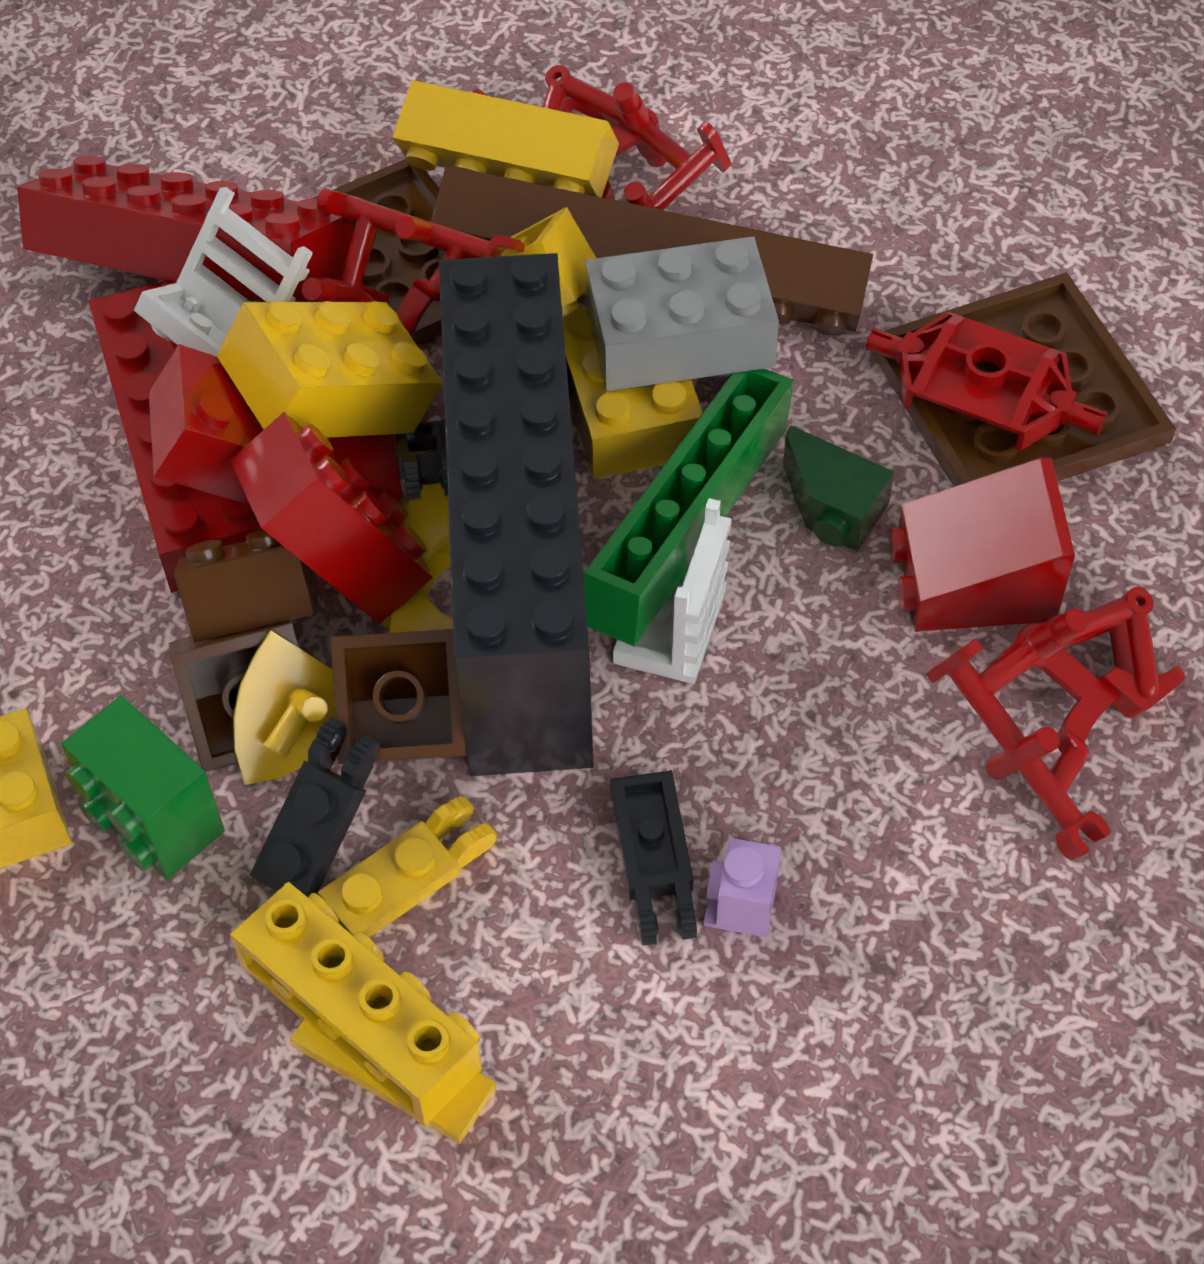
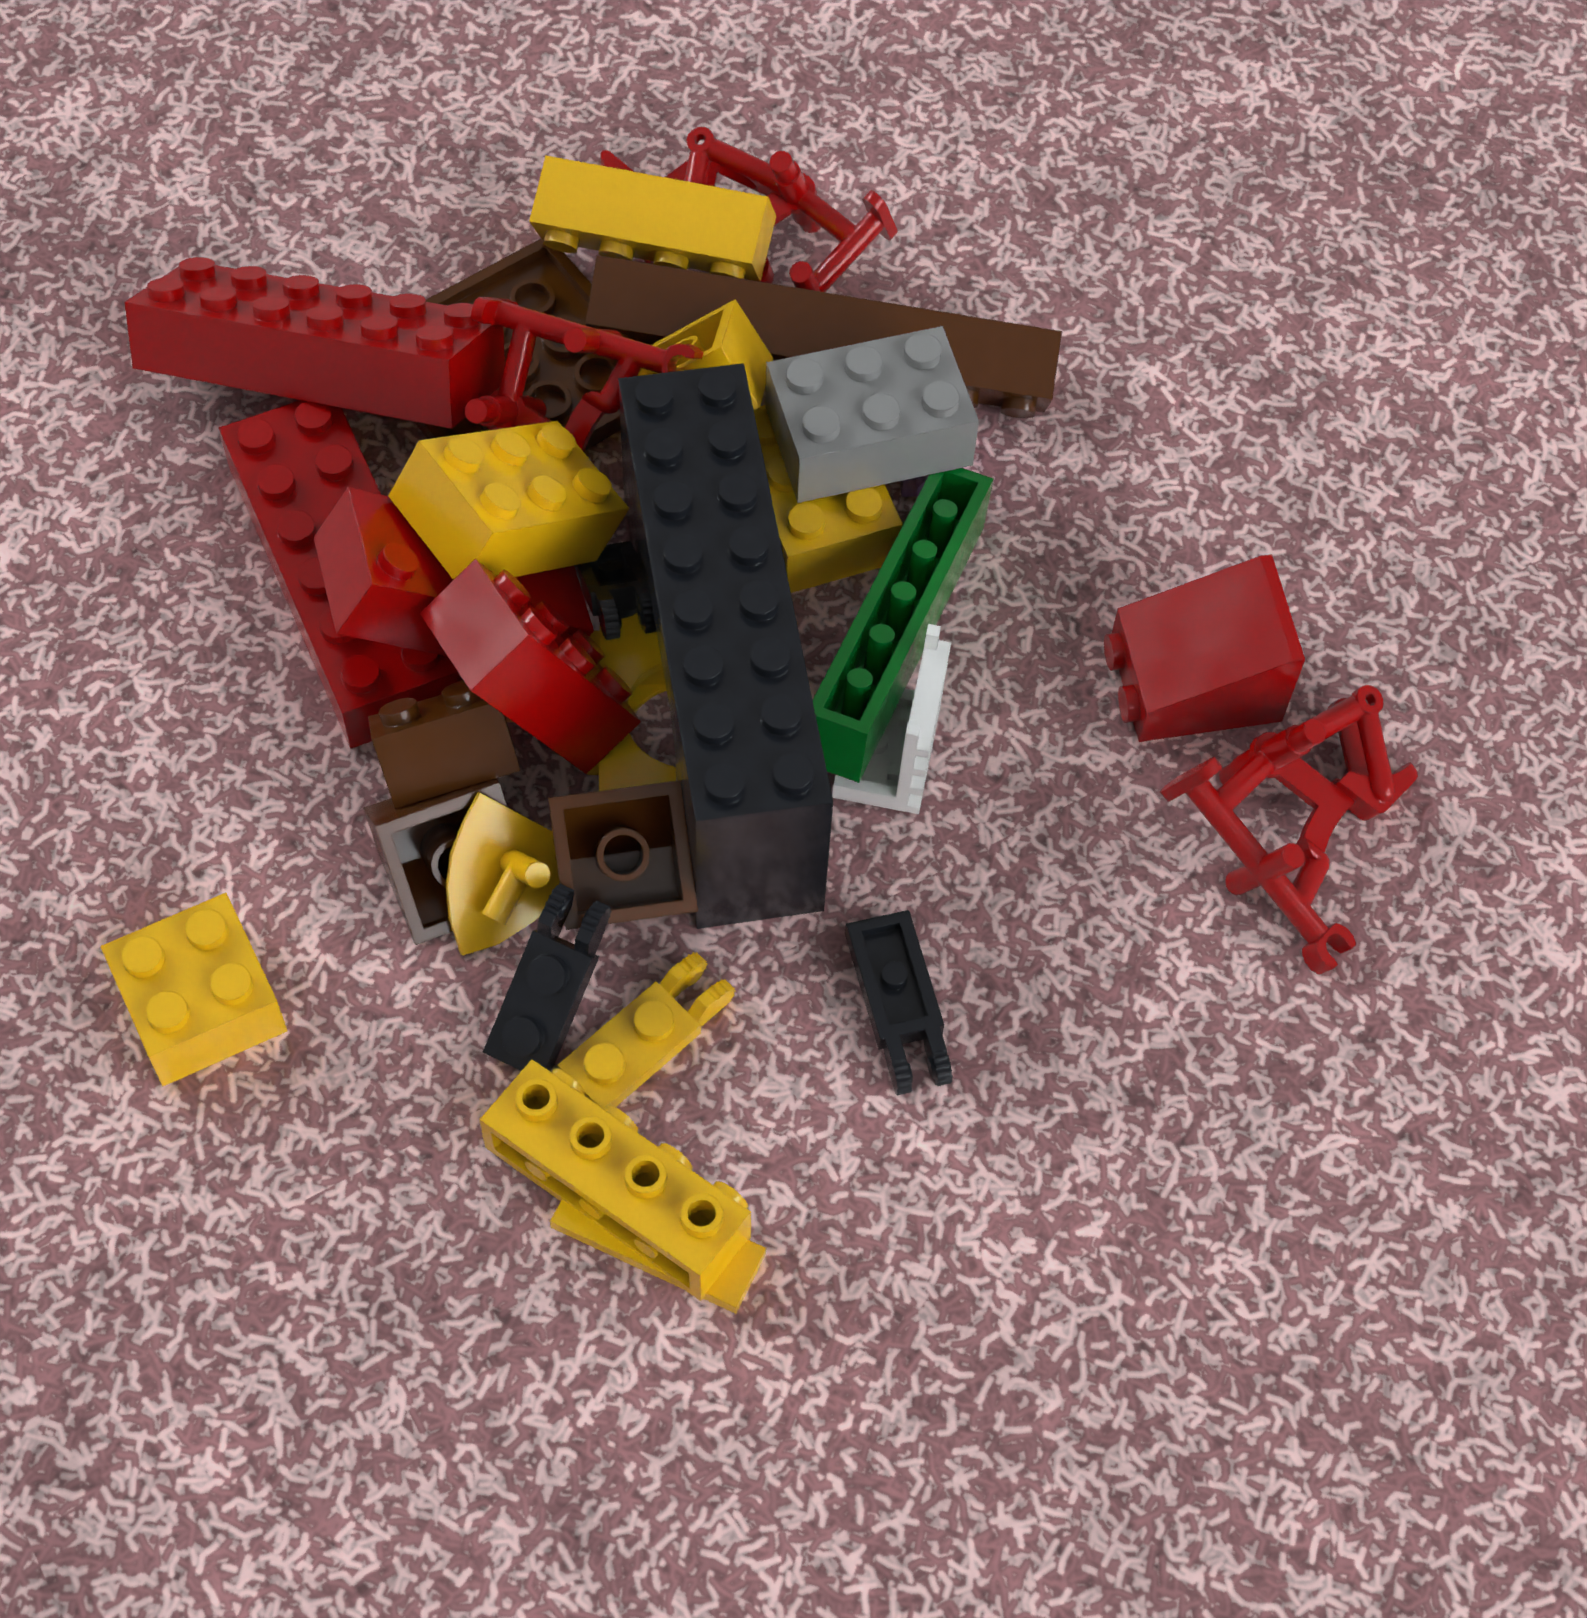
camera: 10 degrees left, 5 degrees up
(142, 788) = (363, 970): green brick -> none
(200, 304) = (357, 438): white plate -> none
(743, 888) = (996, 1030): lavender brick -> none
(835, 488) = (1042, 592): dark green slope -> none
(1024, 397) = (1231, 484): red plate -> none
(1062, 319) = (1223, 466): reddish brown plate -> none

